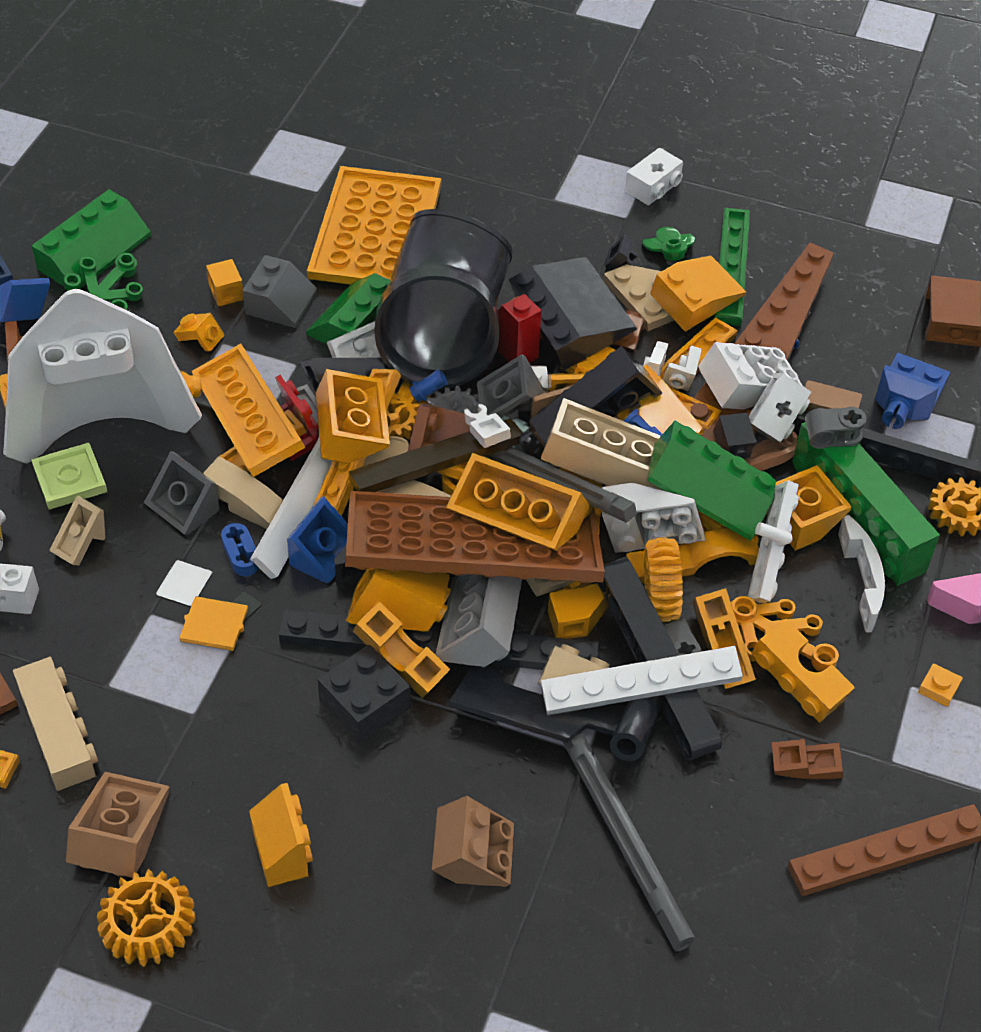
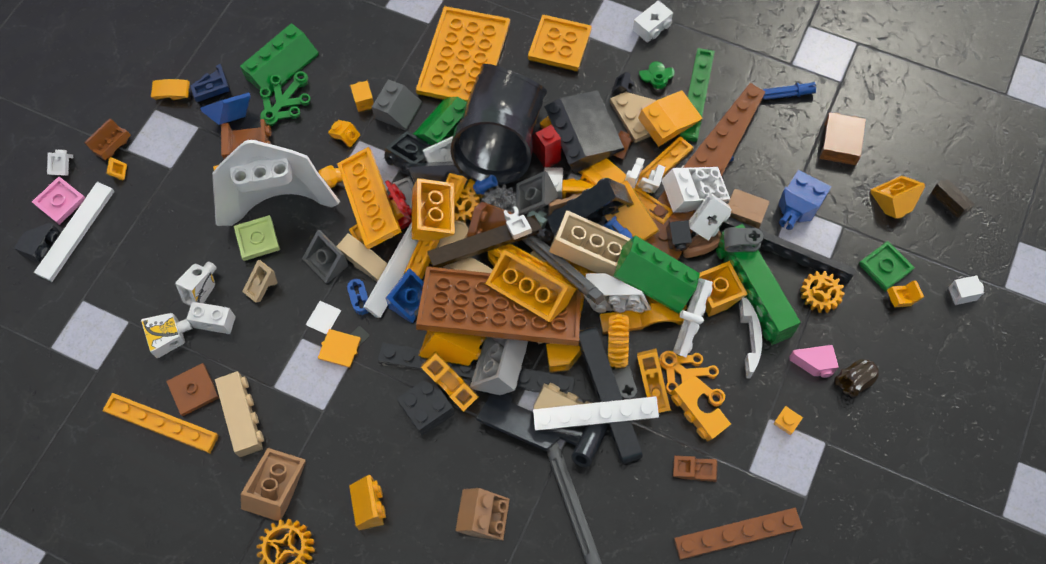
camera: 10 degrees right, 15 degrees up
(294, 346) = (405, 150): none -> black plate
(521, 206) = (560, 42): none -> light orange plate
(869, 255) = (793, 90): none -> blue axle

